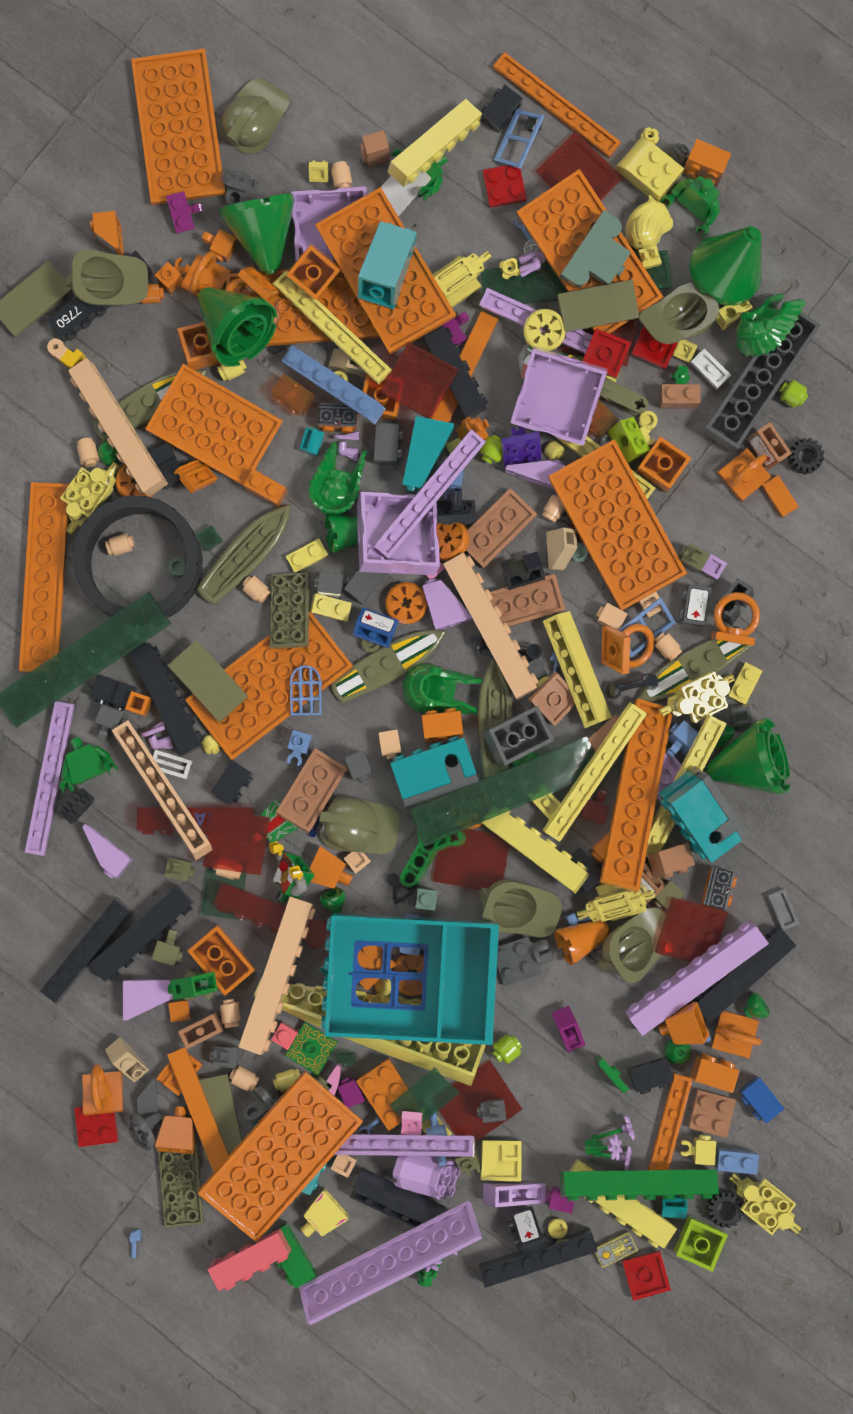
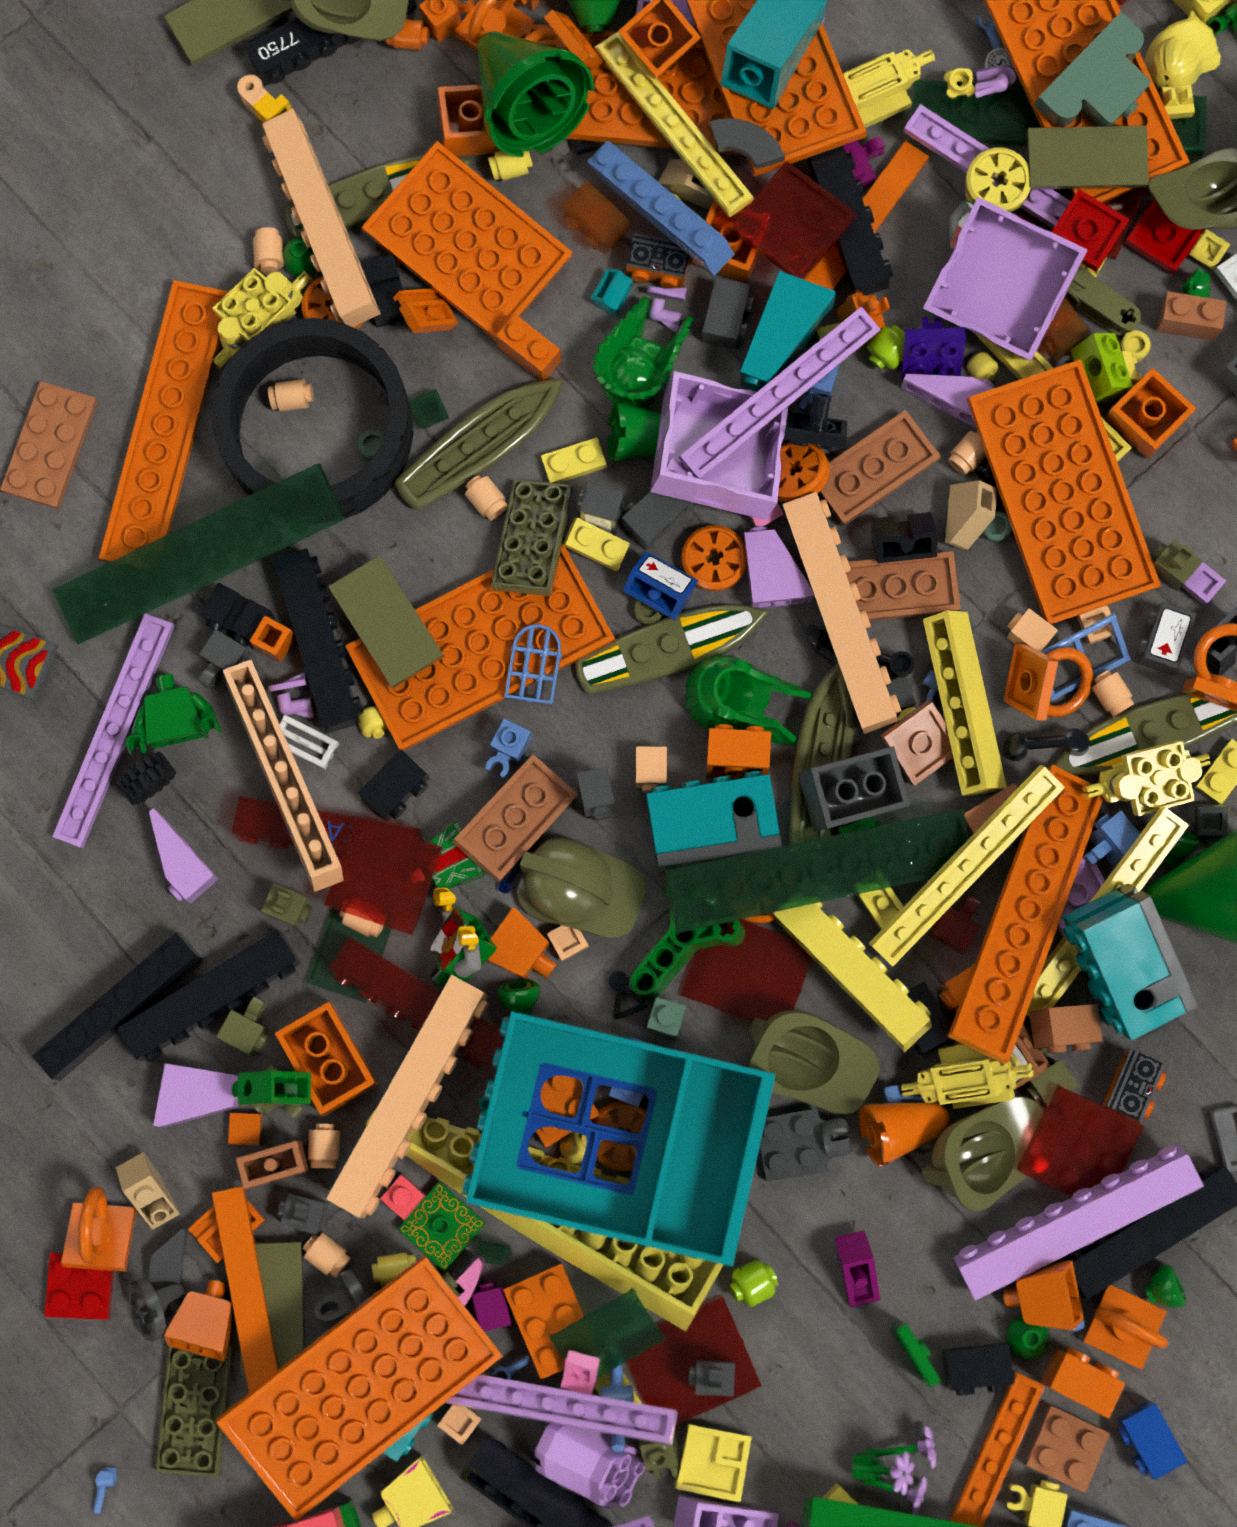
camera: 15 degrees right, 5 degrees down
(381, 332) = (748, 140): none -> dark grey tile

